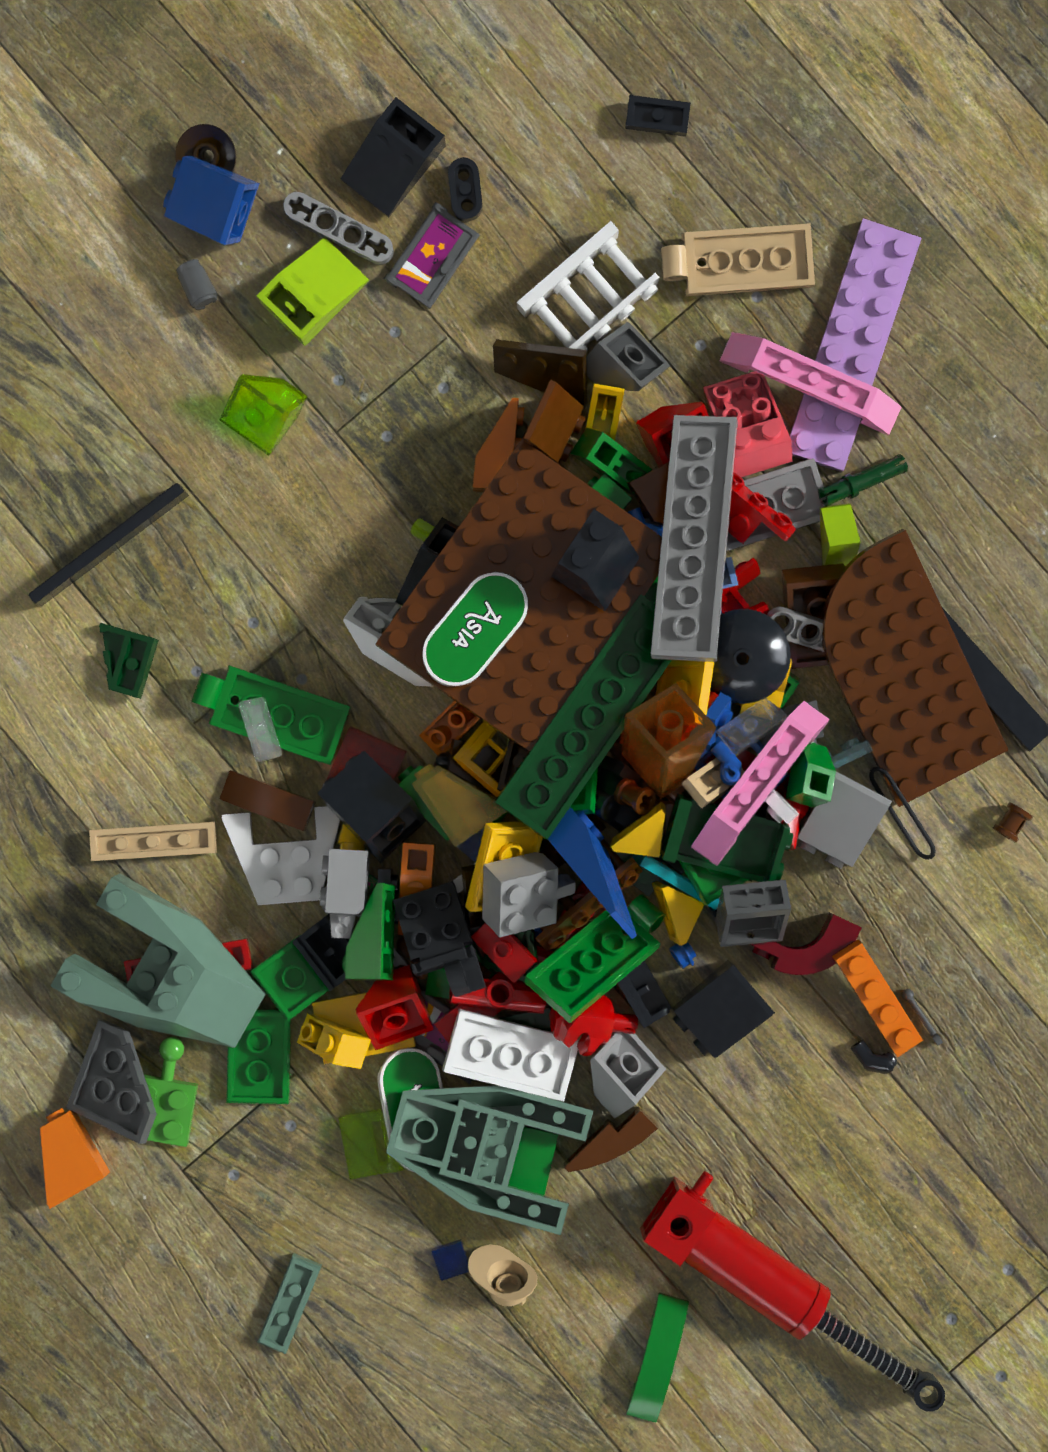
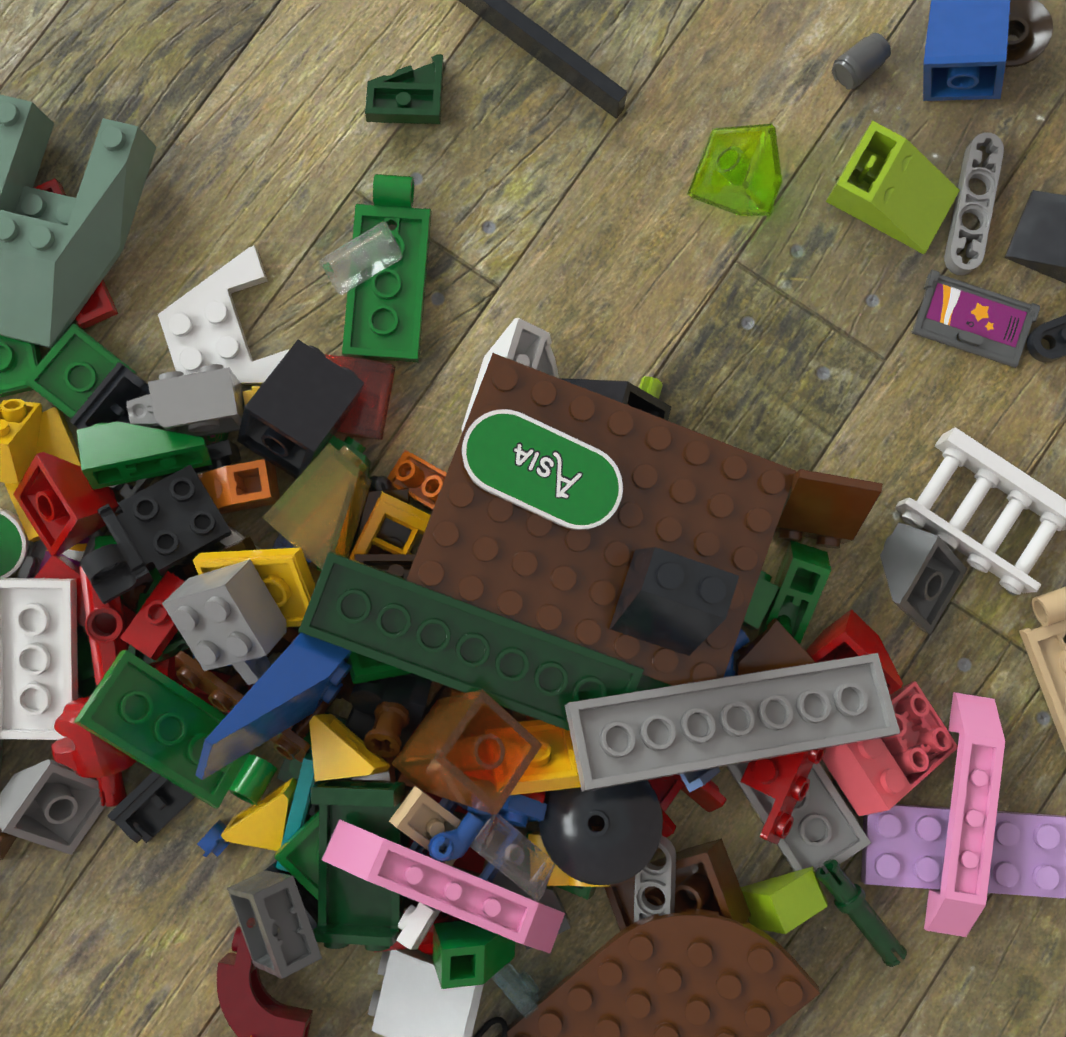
camera: 70 degrees right, 5 degrees down
(153, 841) = (204, 177): tan plate -> none
(267, 800) = (282, 295): reddish brown slope -> none
(498, 446) = (781, 449): orange slope -> none
(538, 364) = (886, 459): dark brown wing -> none
(605, 409) = (858, 568): yellow slope -> none
(721, 1010) = (153, 910): black slope -> none

